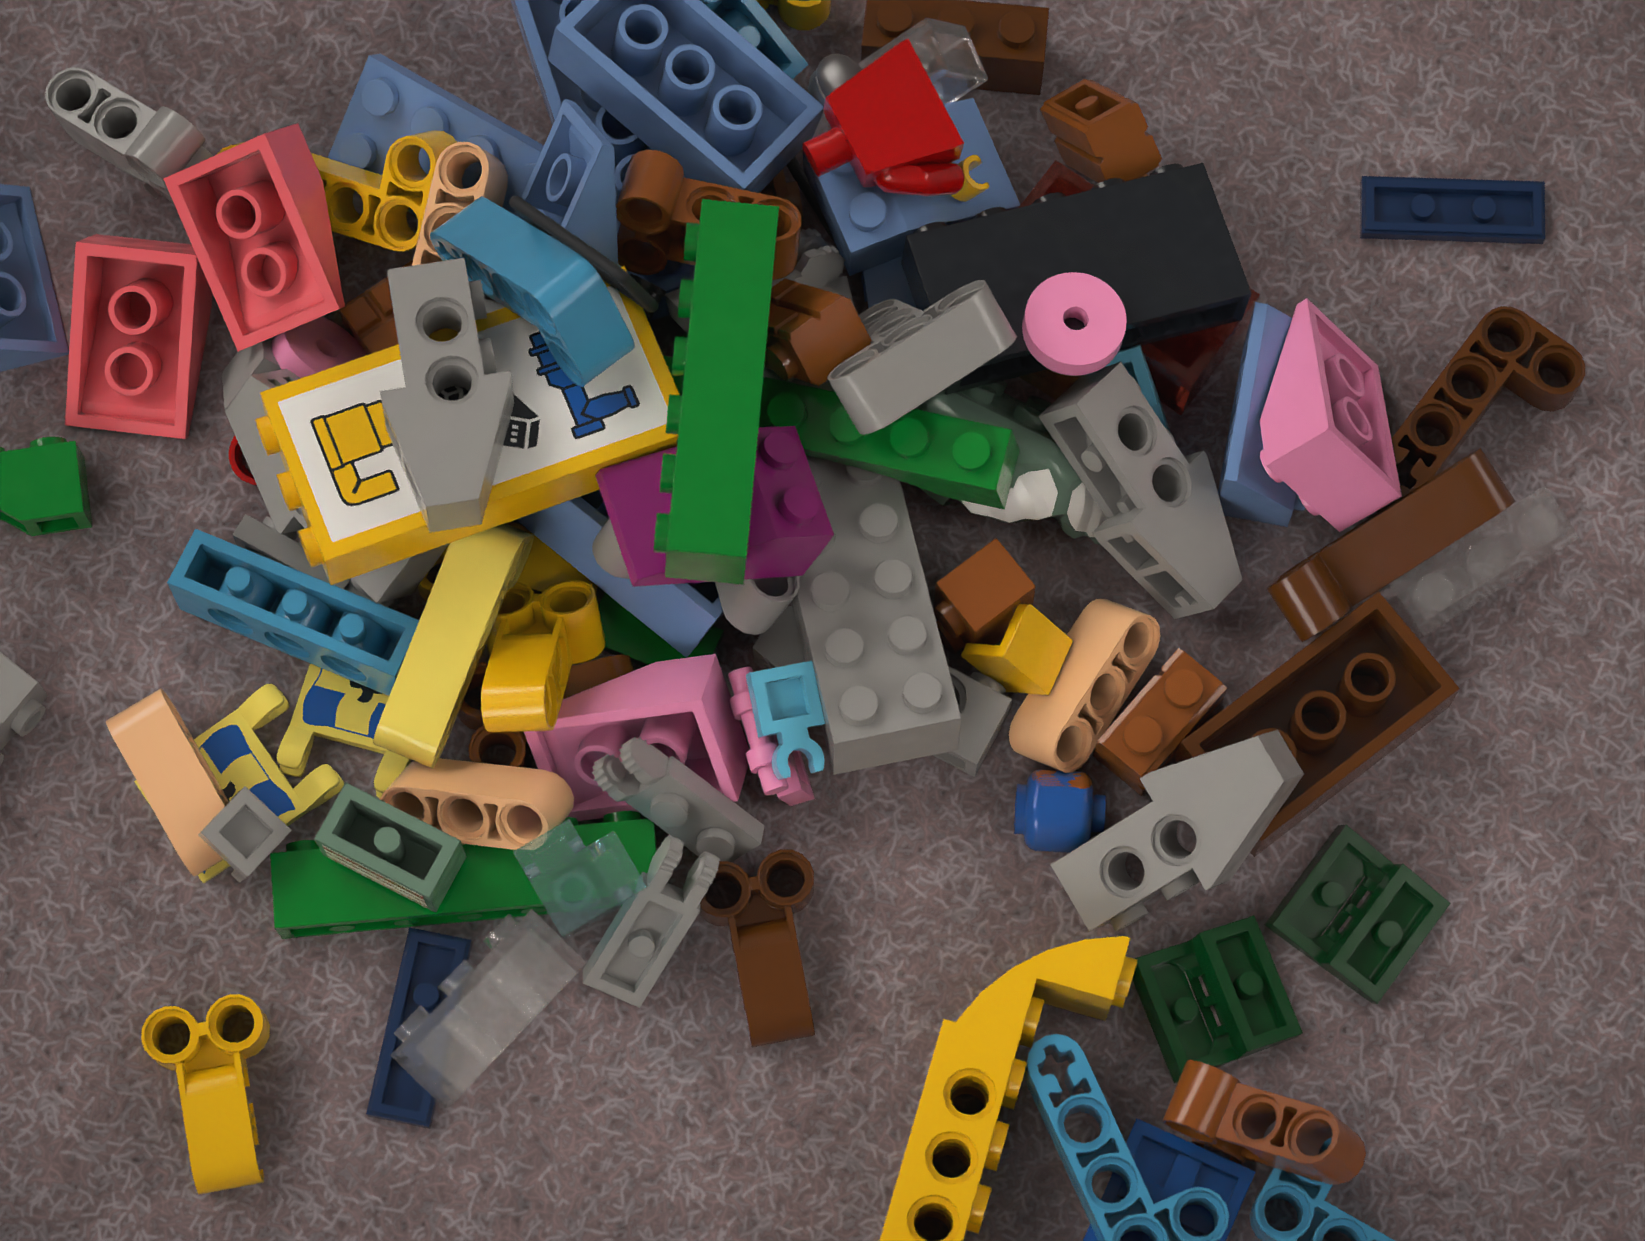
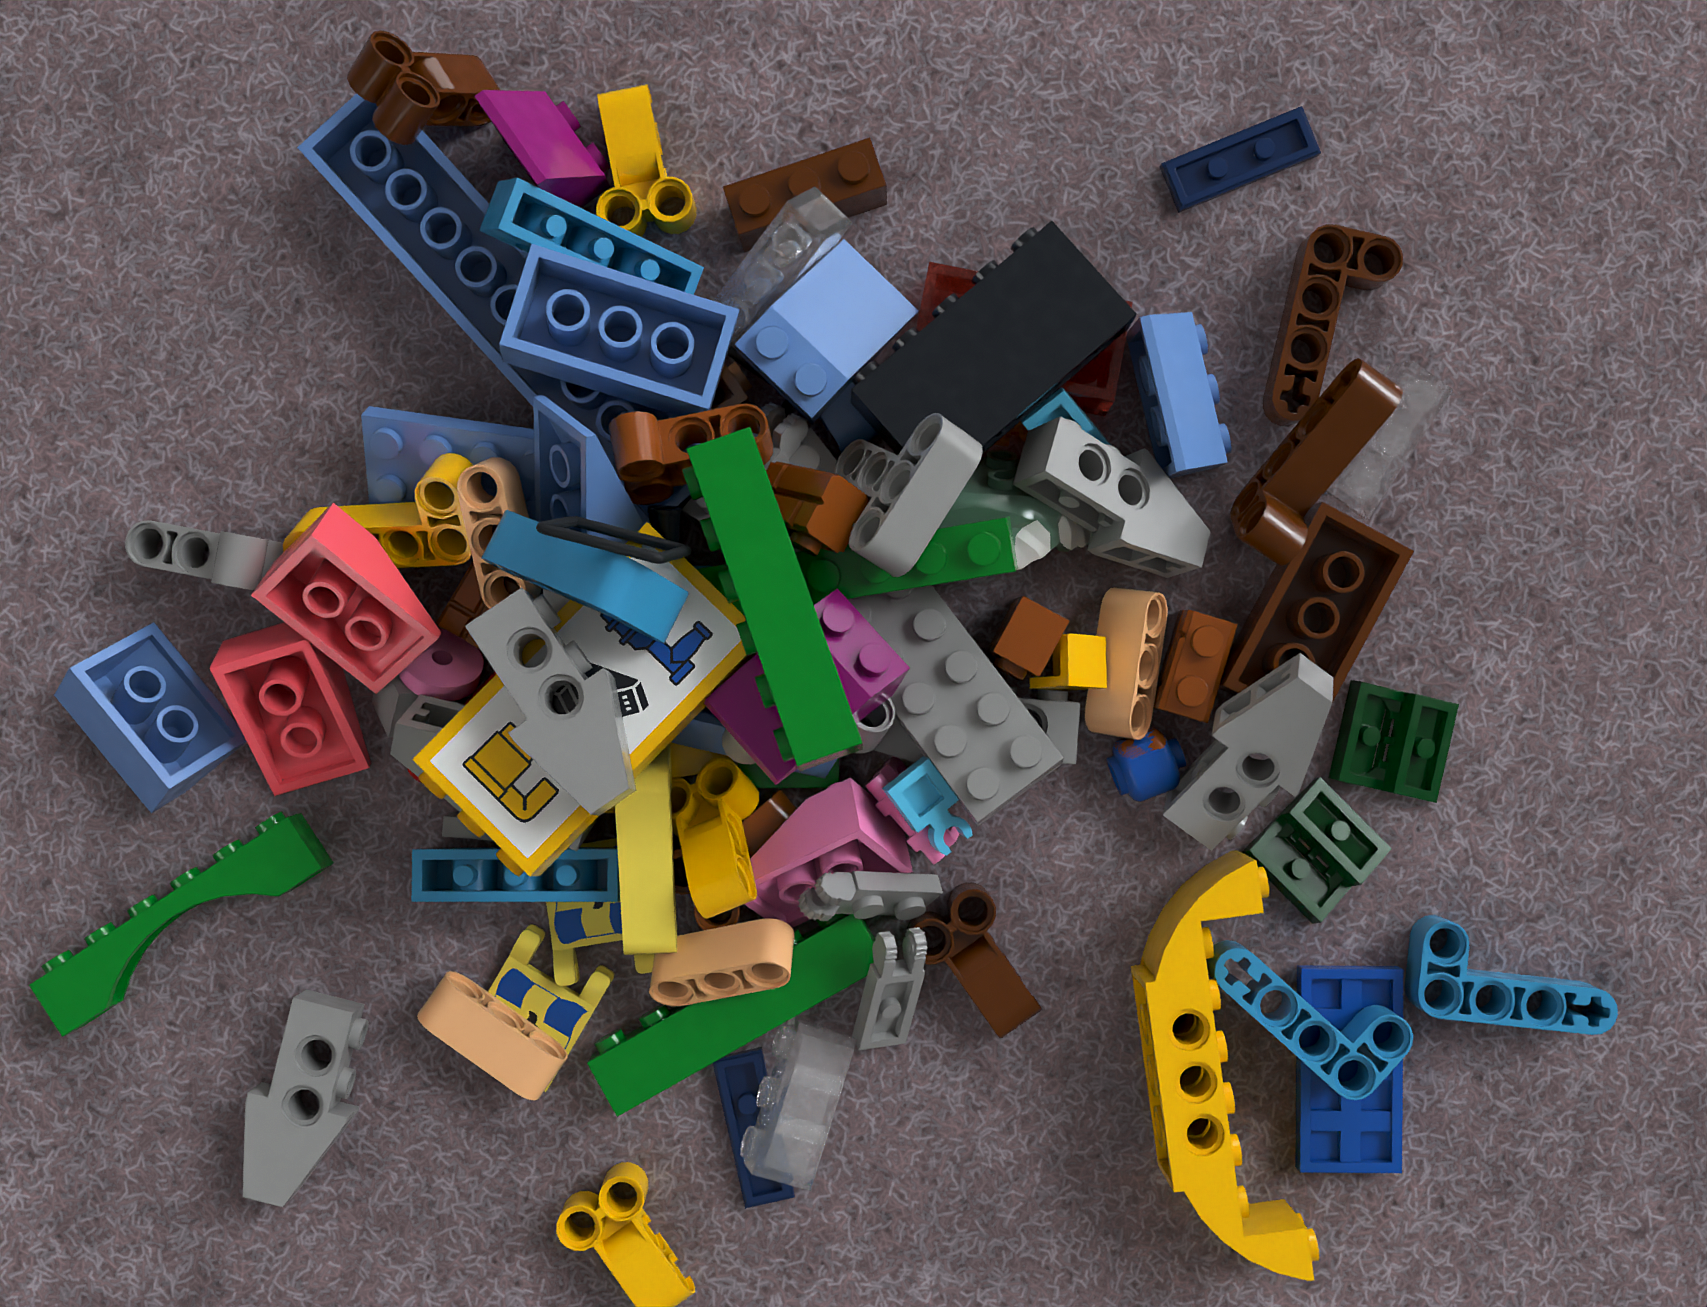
camera: 25 degrees left, 15 degrees up
(244, 833) = (562, 1060): light grey panel -> none
(390, 847) = (676, 1034): sand green brick -> none
(577, 880) = (827, 996): clear light blue brick -> none
(889, 127) = (798, 308): red torso -> none
(1080, 298) = (1017, 381): bright pink piece -> none
(1101, 132) = (955, 224): dark orange brick -> none
(1234, 1117) = (1374, 946): dark orange piece -> none
(1328, 423) = (1230, 384): bright pink slope -> none

